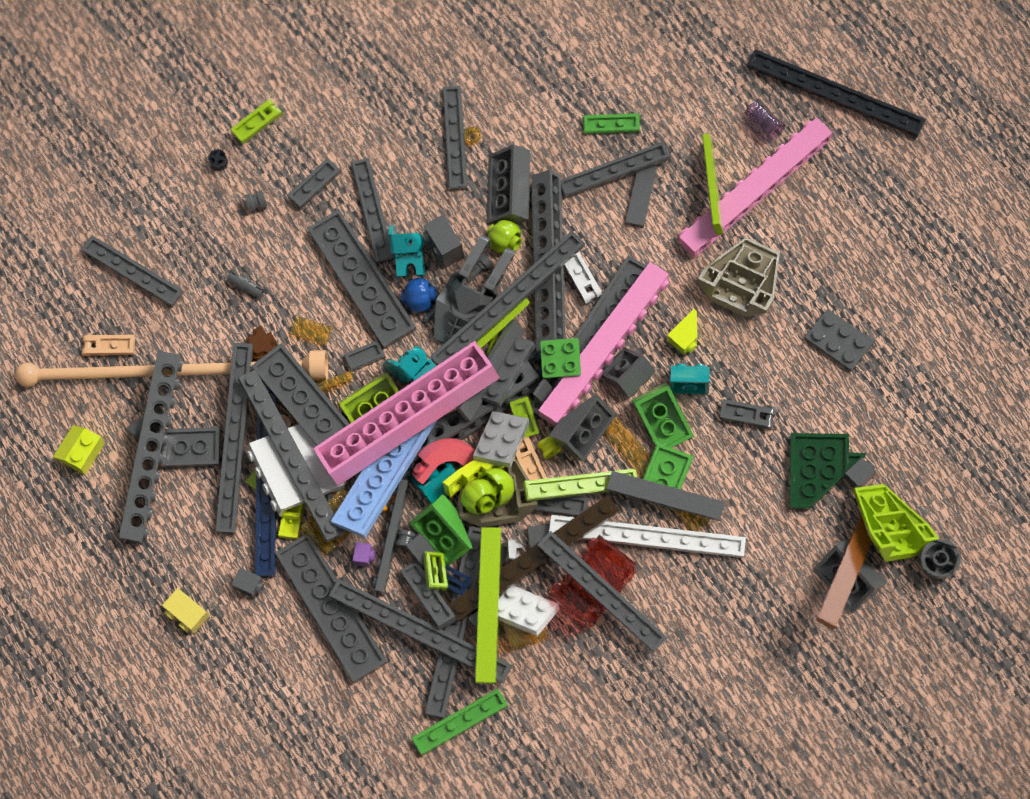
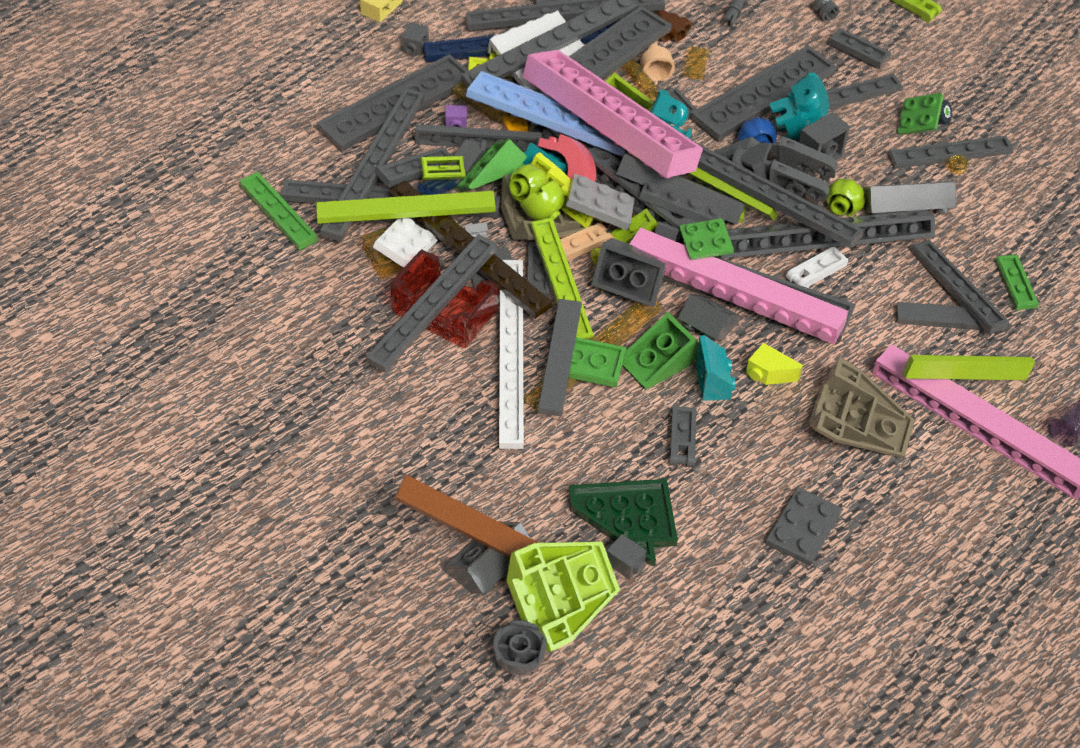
camera: 70 degrees right, 20 degrees down
(414, 149) = (924, 114): none -> bright green plate

